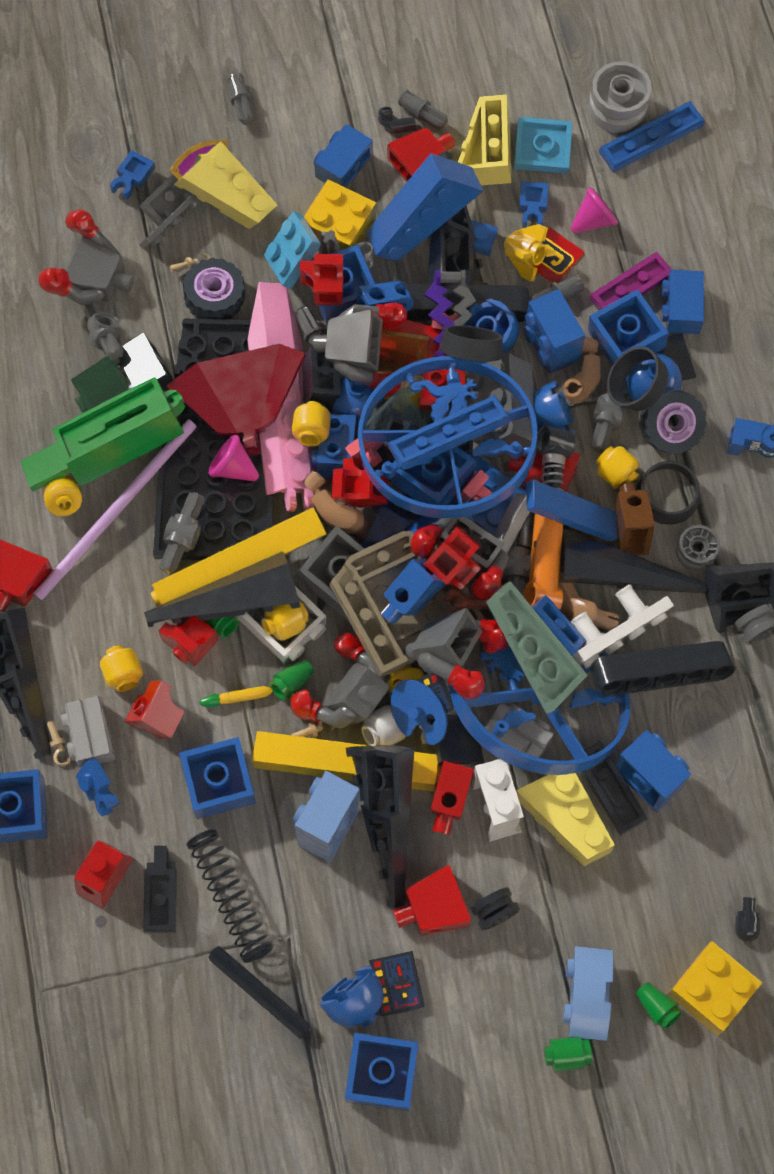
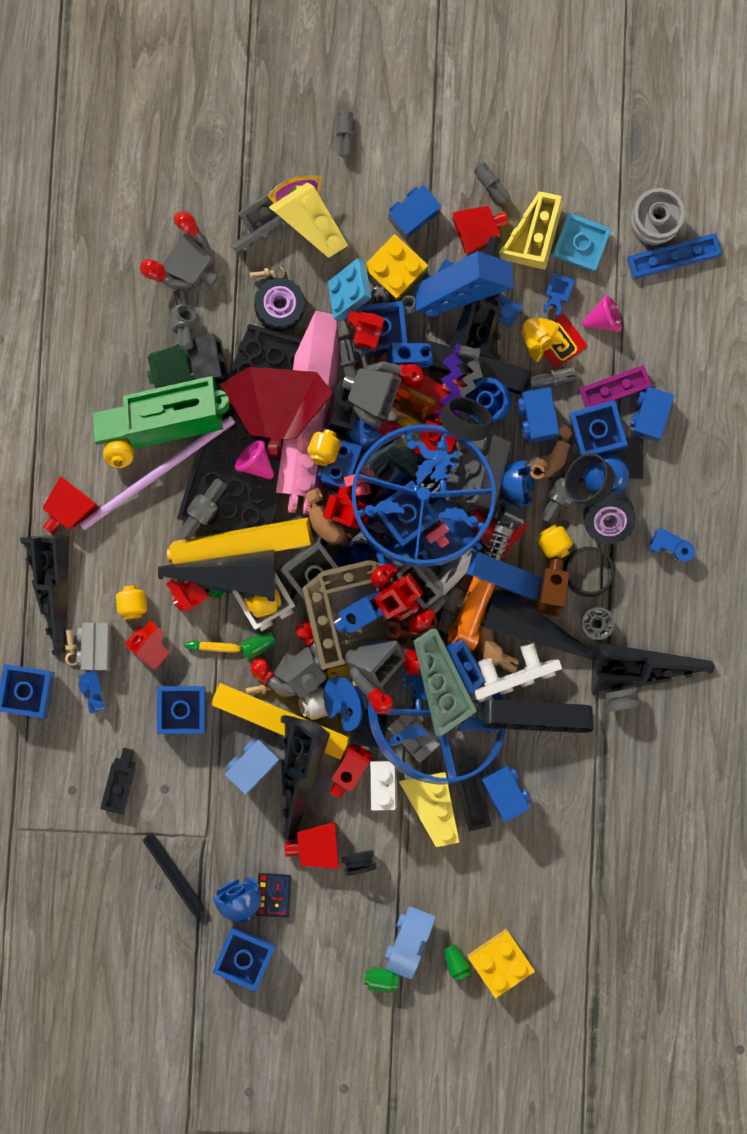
camera: 15 degrees right, 15 degrees up
(101, 873) = (81, 756): red torso -> none
(132, 171) = (241, 179): blue plate -> none
(256, 952) = (170, 846): black piece -> none
(394, 124) = (464, 188): black arm -> none
(448, 432) = (423, 496): blue tile -> none
(748, 921) = (542, 920): black cylinder -> none

